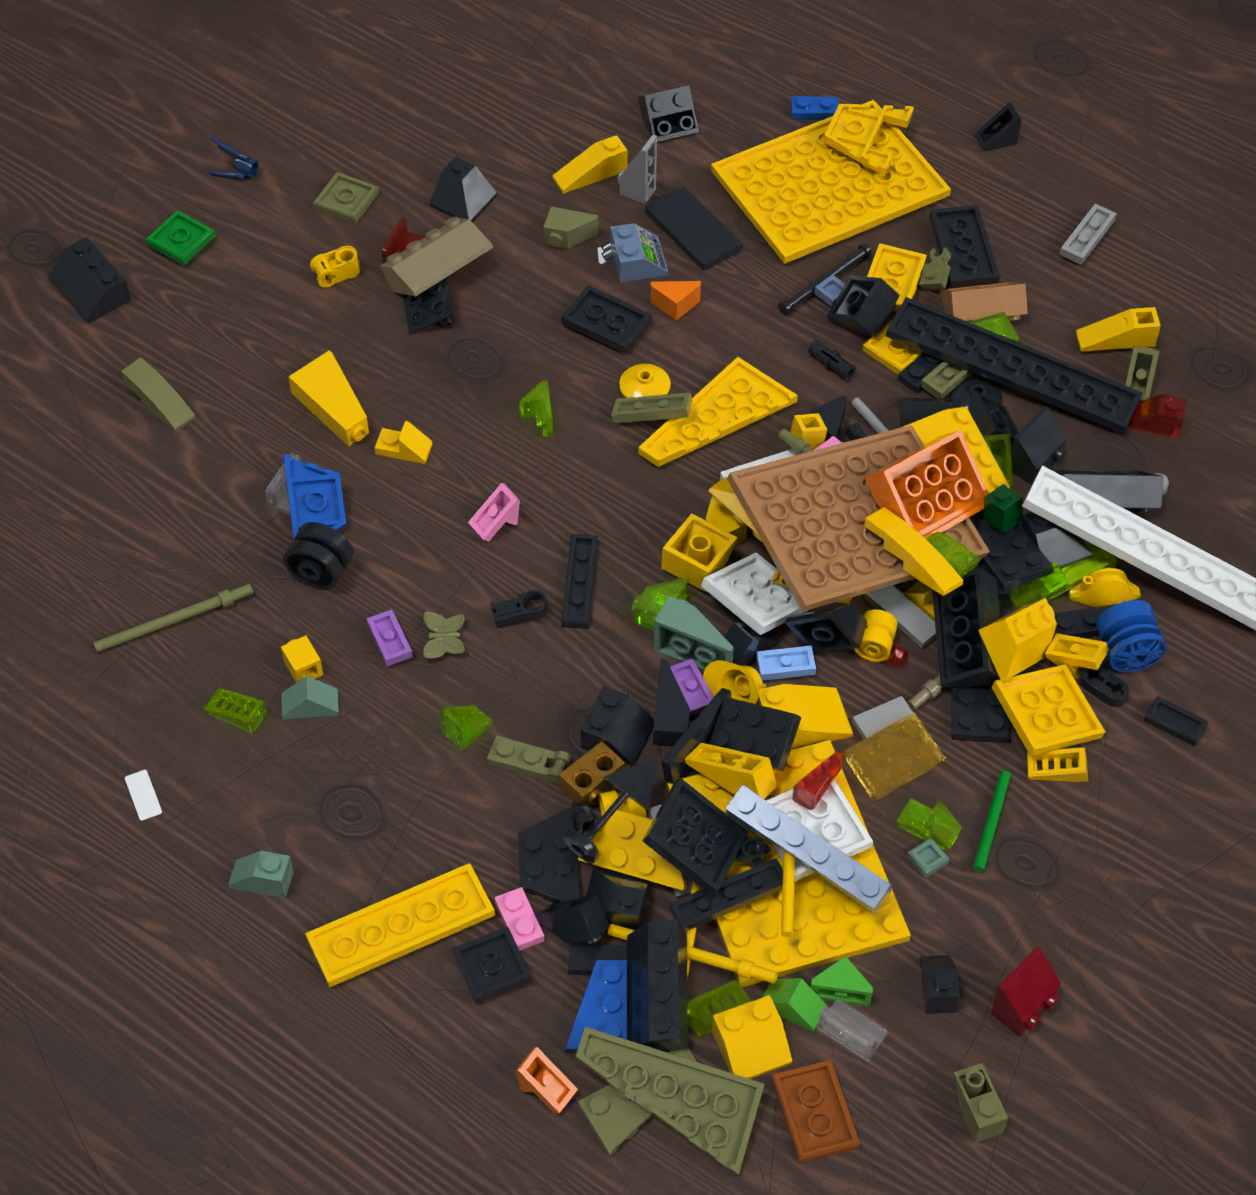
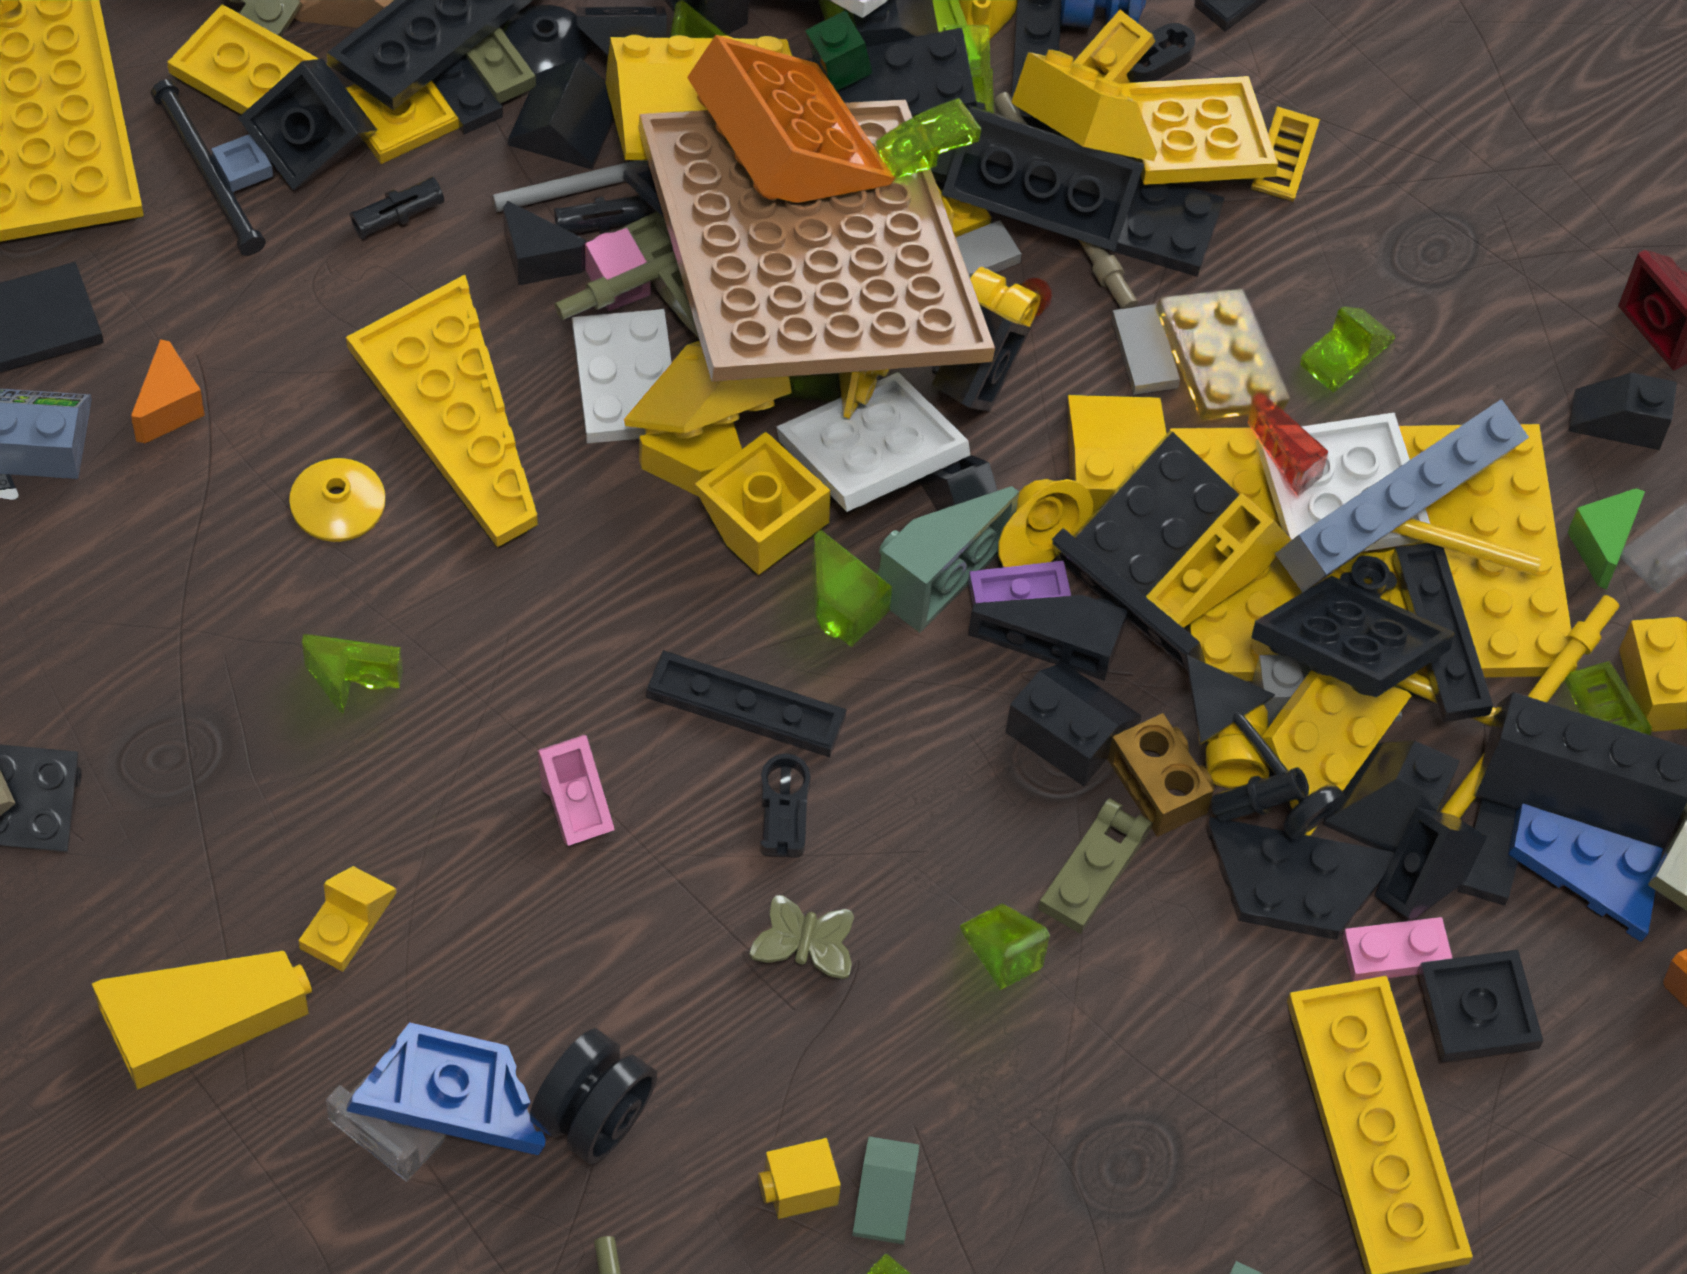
camera: 80 degrees left, 5 degrees up
(389, 637) = (788, 1025): medium lavender plate -> none
(606, 319) = (171, 516): black plate -> none
(652, 408) = (420, 492): olive plate -> none
(786, 663) = (1009, 442): light blue plate -> none
(796, 1002) = (1636, 601): bright green slope -> none
(809, 428) = (560, 274): yellow brick -> none
(918, 555) = (923, 175): yellow slope -> none
(928, 857) = (1405, 366): sand green tile -> none
(991, 821) = (1360, 267): green bar -> none

